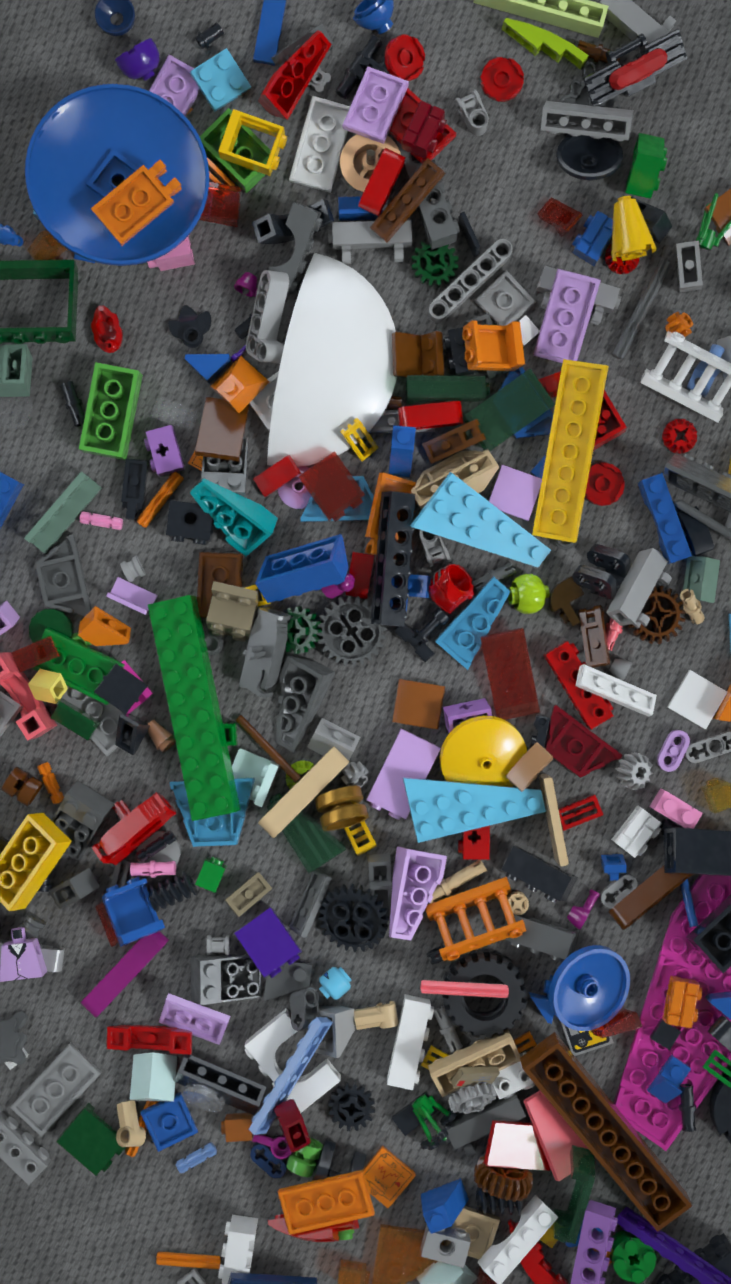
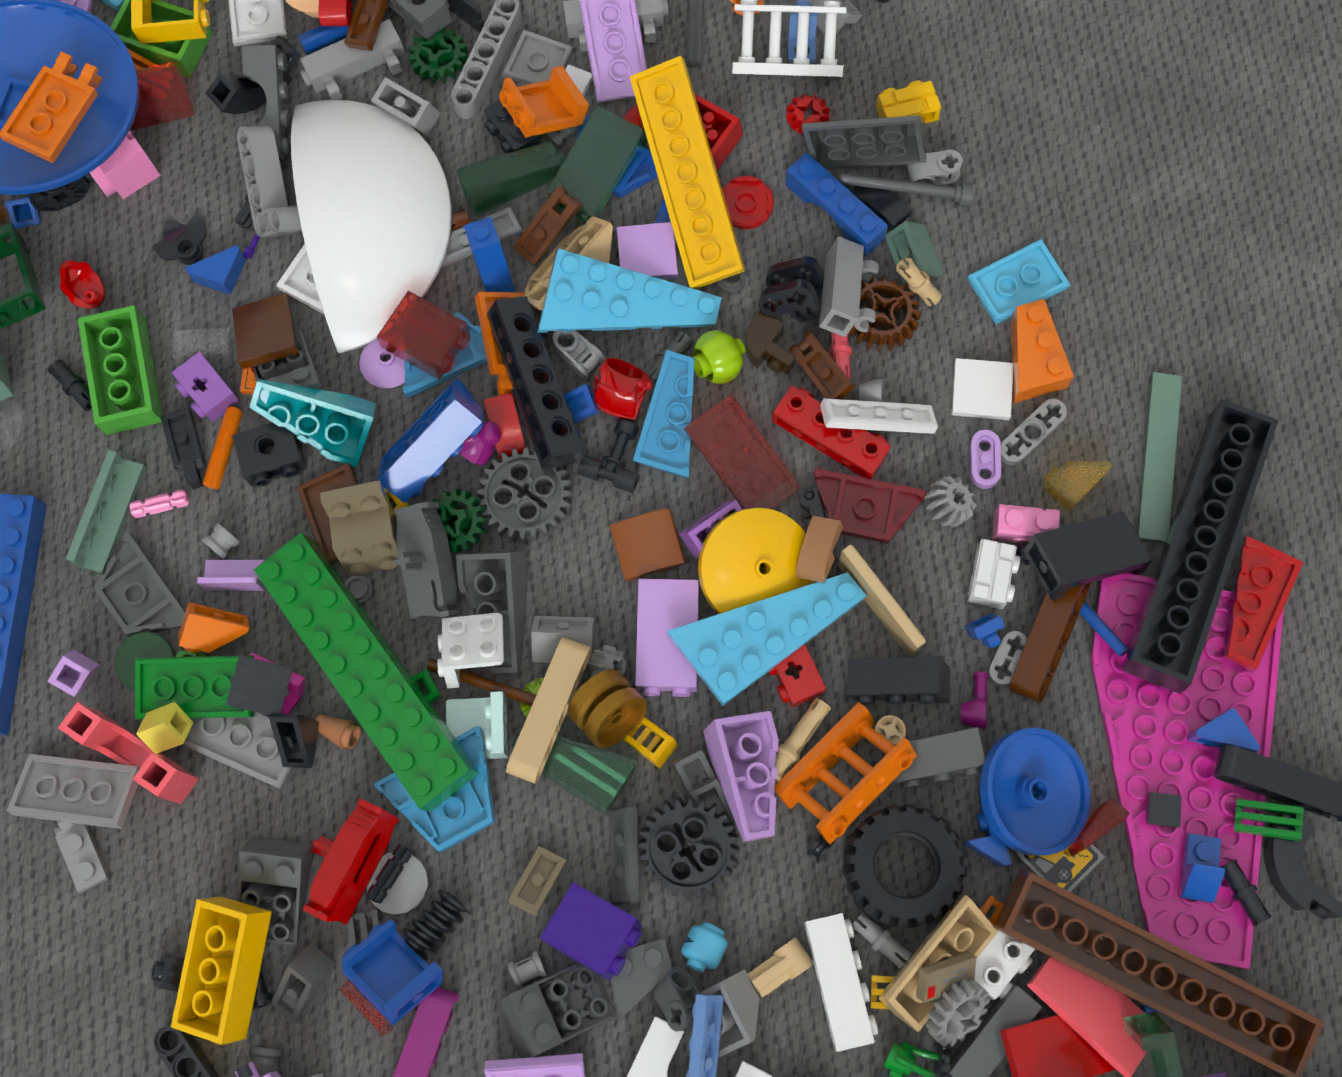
camera: 20 degrees left, 15 degrees down
(28, 790) = (176, 875): reddish brown wheel -> none
(35, 654) = (134, 696): clear red slope -> none
(50, 783) = (217, 856): orange axle -> none
(75, 719) = (218, 756): dark green panel -> none
(153, 868) = (397, 904): bright pink pin -> none
(211, 874) = (477, 877): green brick -> none
(240, 384) = (265, 276): orange slope -> none
(249, 282) = (229, 164): magenta bar -> none
(270, 724) = (469, 644): none -> white bracket
(277, 476) = (354, 357): red tile -> none
(352, 430) = (417, 259): yellow tile -> none
(393, 297) = (406, 106): none -> light grey brick
(417, 354) = (459, 150): reddish brown bracket -> none
(431, 415) = (511, 206): red beam -> none
(464, 989) = (873, 863): coral axle -> none
(576, 804) = (926, 568): red tile -> none
(681, 1002) = (1161, 755): orange brick -> none

